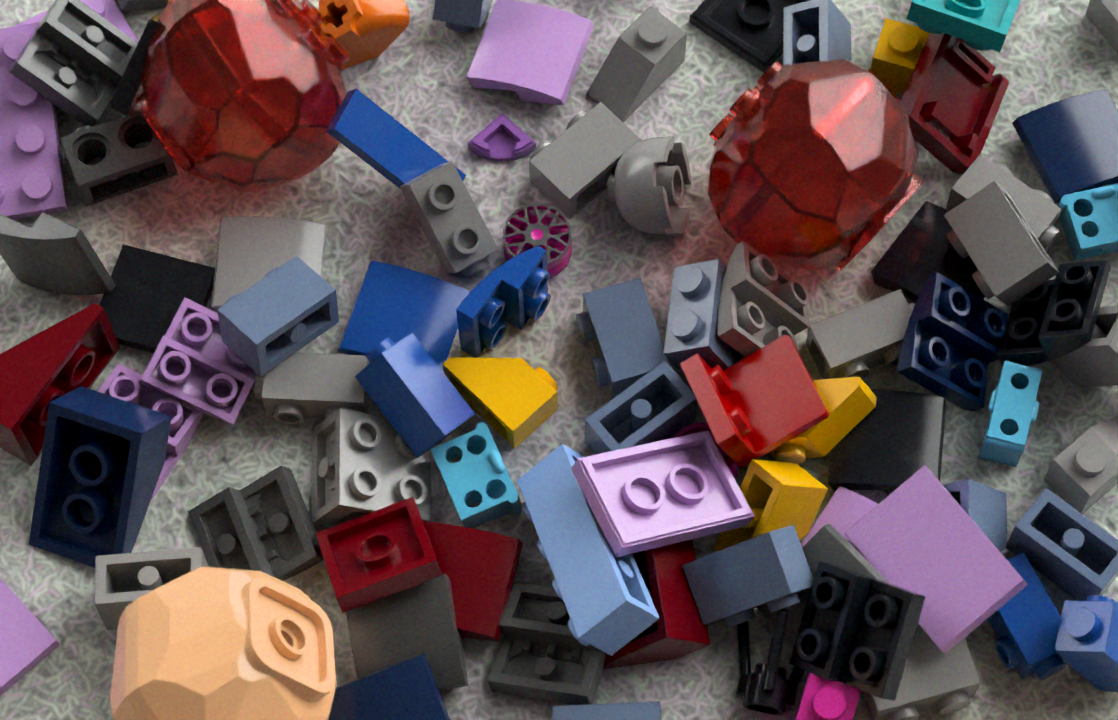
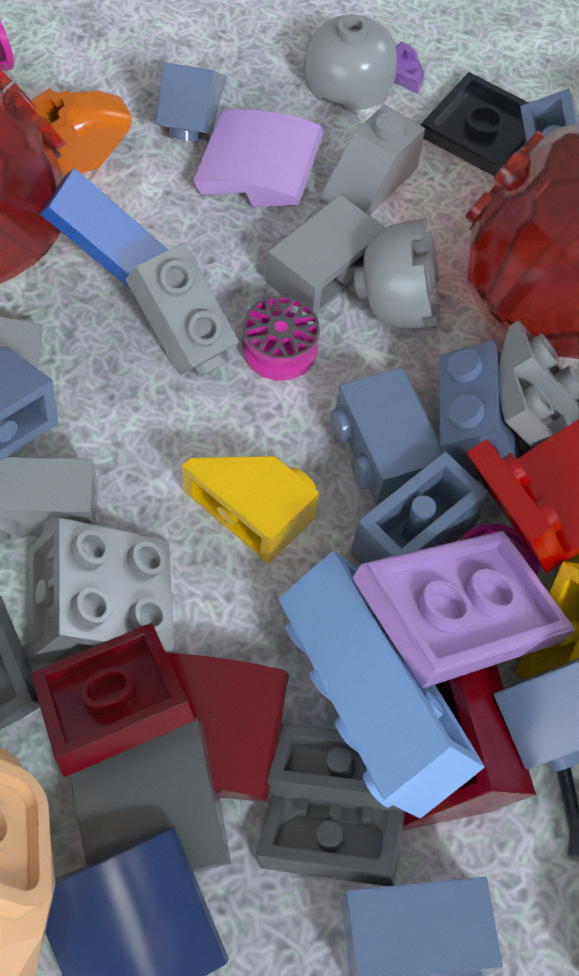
camera: 10 degrees left, 5 degrees down
(399, 303) = (135, 423): blue slope -> none
(413, 393) = (148, 498): blue brick -> none
(477, 477) = (228, 597): medium azure piece -> none
(502, 140) = (234, 241): medium lavender tile -> none
(507, 294) = (250, 392): blue slope -> none

